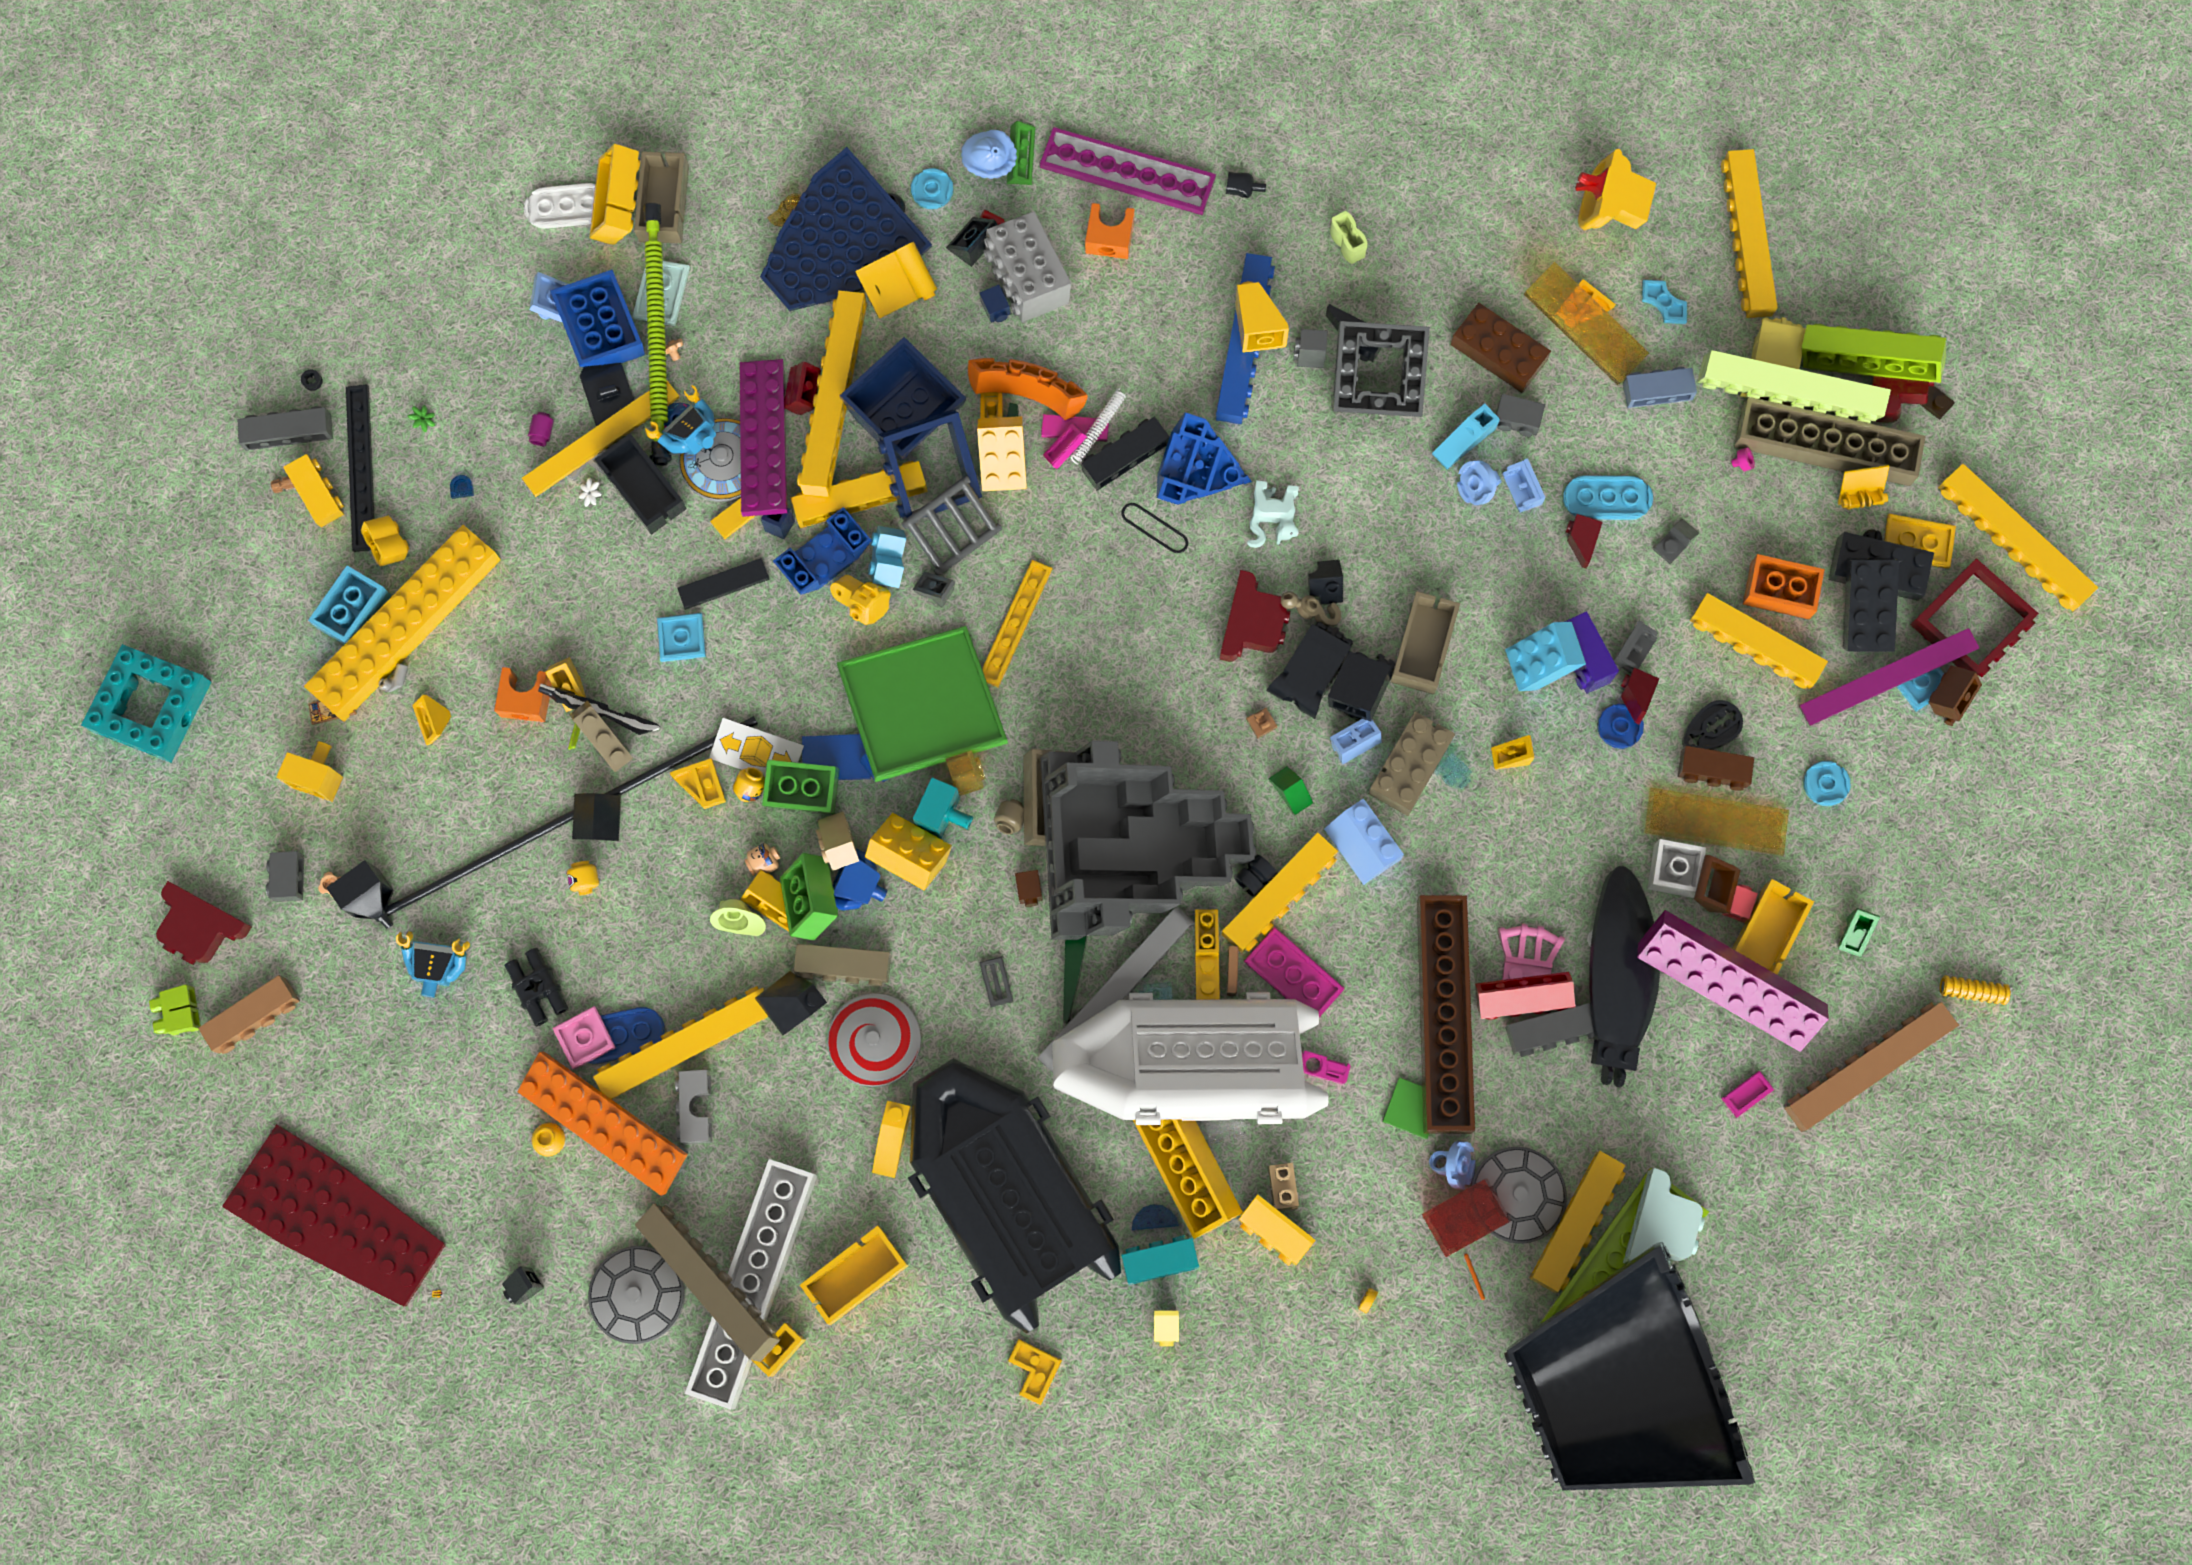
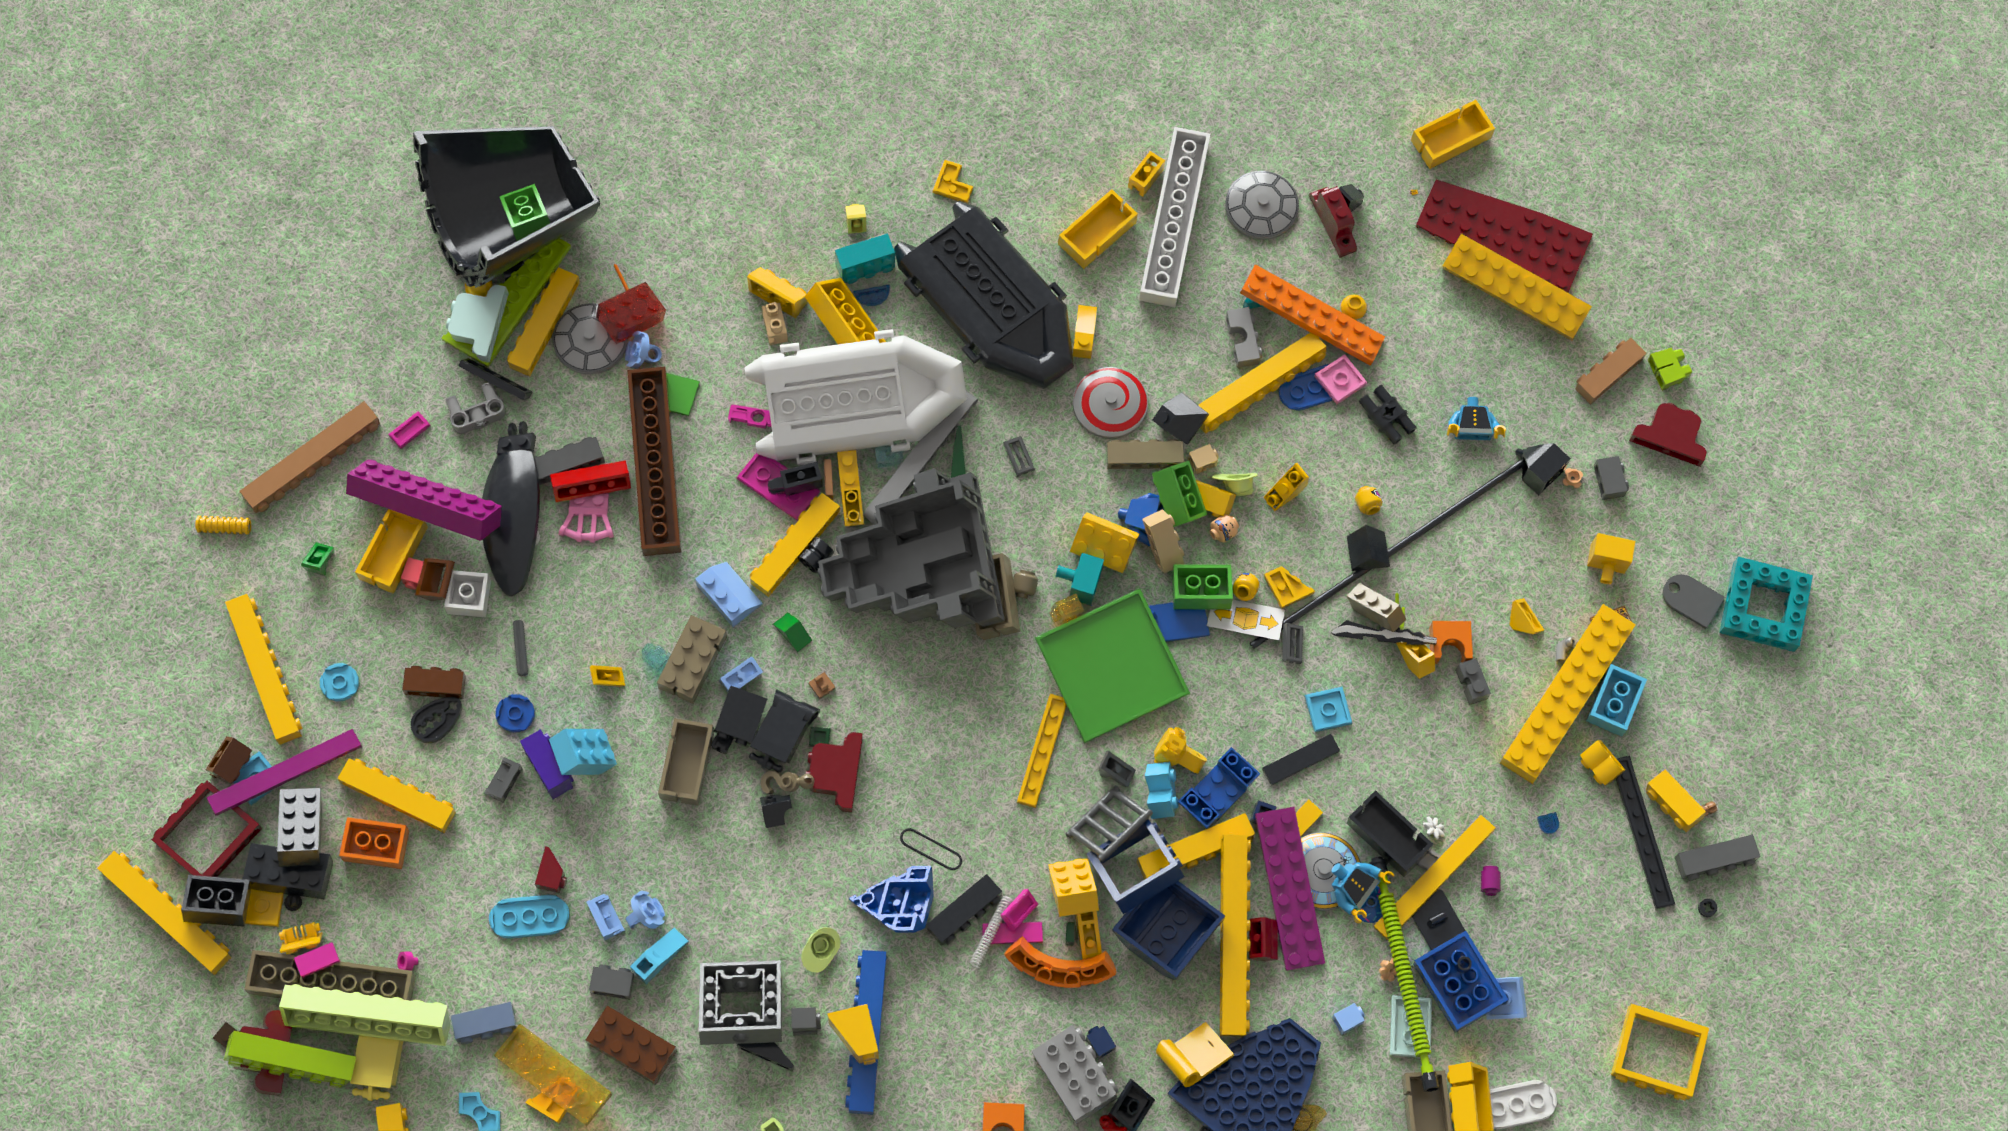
camera: 165 degrees right, 5 degrees down
(229, 721) = (1692, 600): none -> dark grey tile
(337, 1135) = (1516, 287): none -> yellow brick
(366, 1365) = (1452, 136): none -> yellow piece
(422, 418) = (1596, 881): bright green plant -> none
(430, 266) = (1642, 1081): none -> yellow window
(506, 638) = (1476, 685): none -> dark grey brick
(546, 1260) = (1335, 218): none -> dark red brick
(592, 329) = (1463, 970): none -> black hinge
(677, 901) = (1287, 487): none -> yellow slope
(707, 1282) = (1208, 206): dark tan brick -> none
(710, 715) = (1290, 642): none -> dark grey tile
(725, 302) = (1348, 1018): none -> light blue brick
(771, 951) = (1203, 458): none -> tan brick
(1029, 888) = (1002, 528): reddish brown brick -> none
(1269, 663) = (819, 735): none -> dark green tile
(1271, 966) = (796, 480): none -> black hinge
(1273, 510) = (827, 870): light aqua animal -> none
(1288, 424) = (820, 949): none -> yellowish green piece
(1367, 1300) = (703, 252): yellow tile -> none
(1599, 1365) = (525, 211): none -> bright green brick
(1613, 802) = (520, 648): none -> dark grey axle
(1638, 693) = (500, 737): dark red slope -> none
(1639, 1147) = (495, 379): none -> black tile
(1665, 1100) = (477, 414): none -> light grey piece
(1676, 541) = (467, 882): dark grey slope -> none
(1716, 821) = (433, 641): clear yellow plate -> none
(1846, 456) = (317, 959): none -> dark pink tile
(1918, 805) = (263, 669): none -> yellow brick
(1962, 532) = (216, 900): none -> black brick

